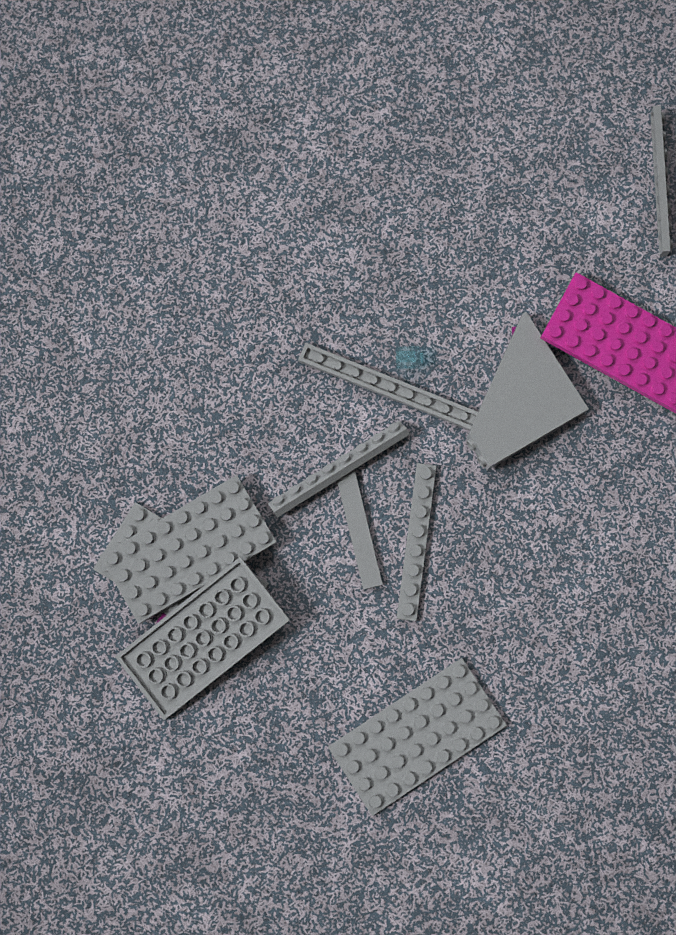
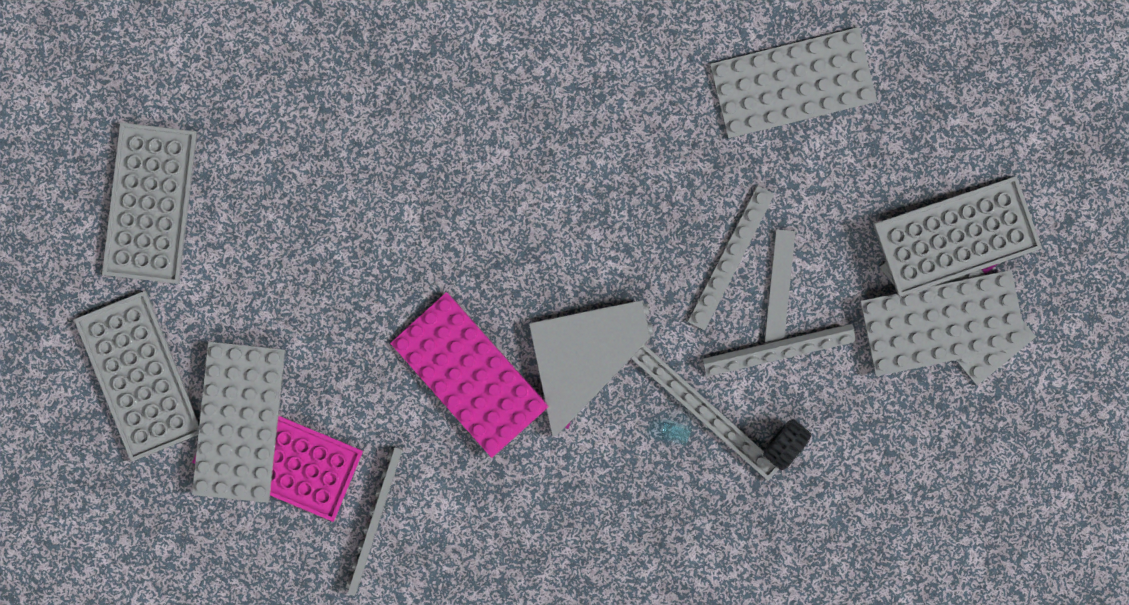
camera: 165 degrees left, 10 degrees up
(300, 379) = (787, 444): none -> black tyre

